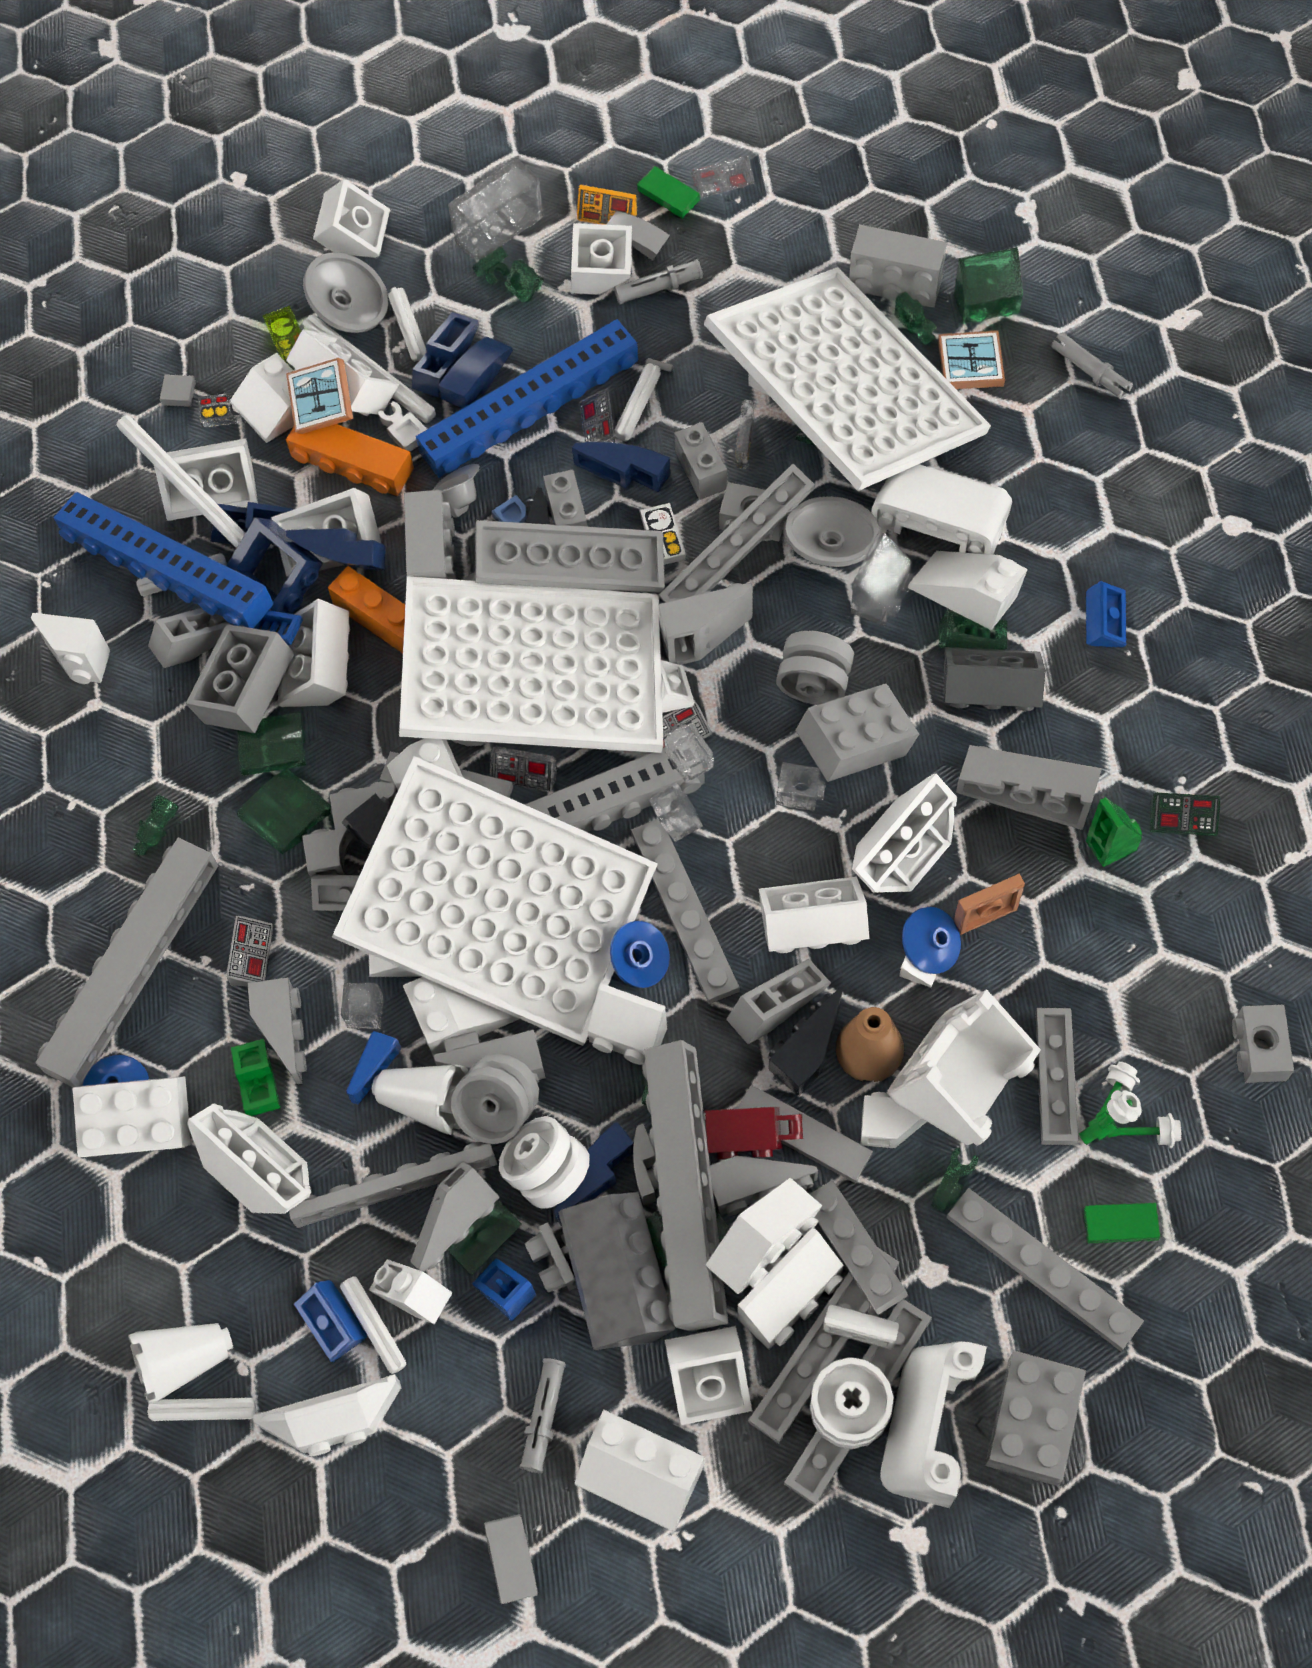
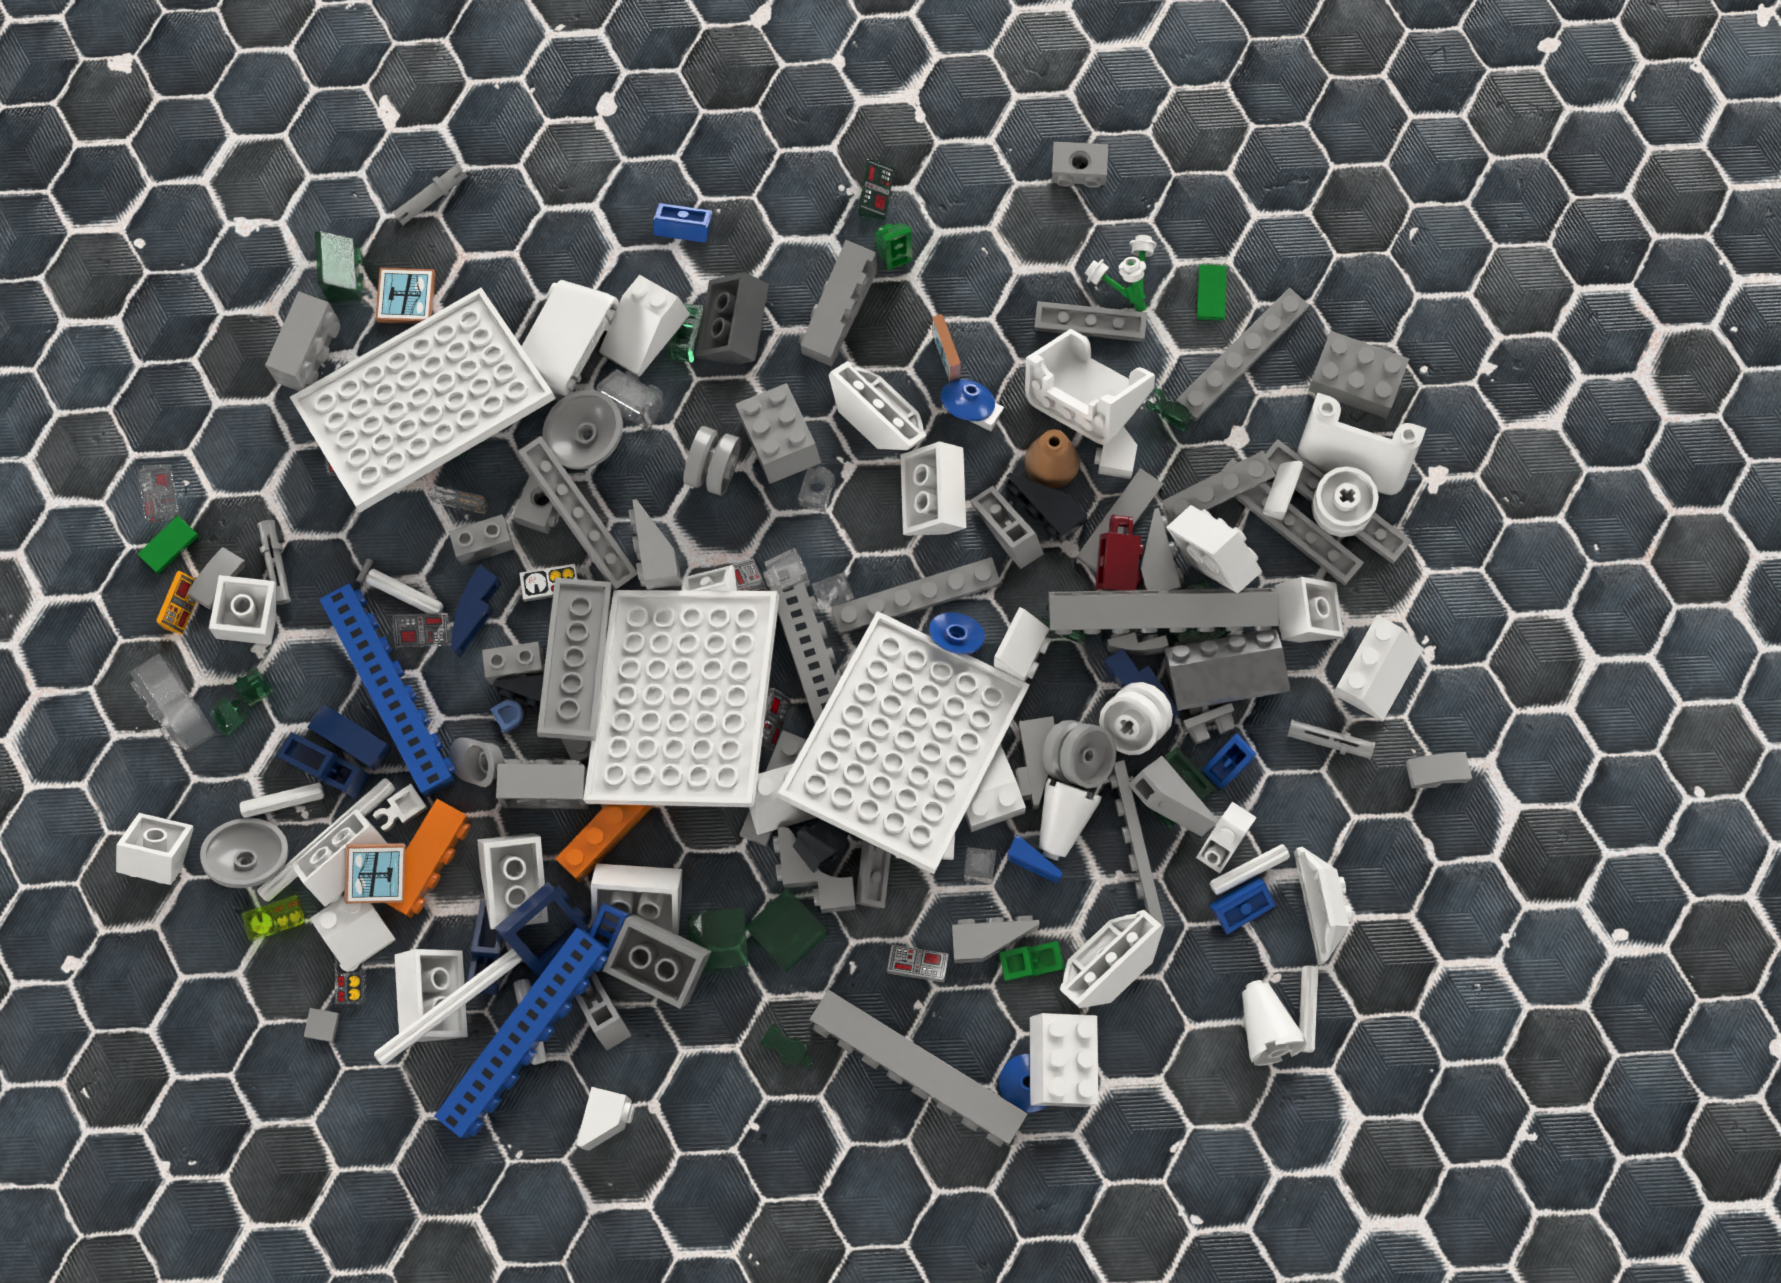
camera: 85 degrees left, 10 degrees up
(341, 546) = (541, 862): dark blue slope -> none
(791, 1290) = (1272, 557): white slope -> none
(910, 314) = (353, 338): clear green plate -> none

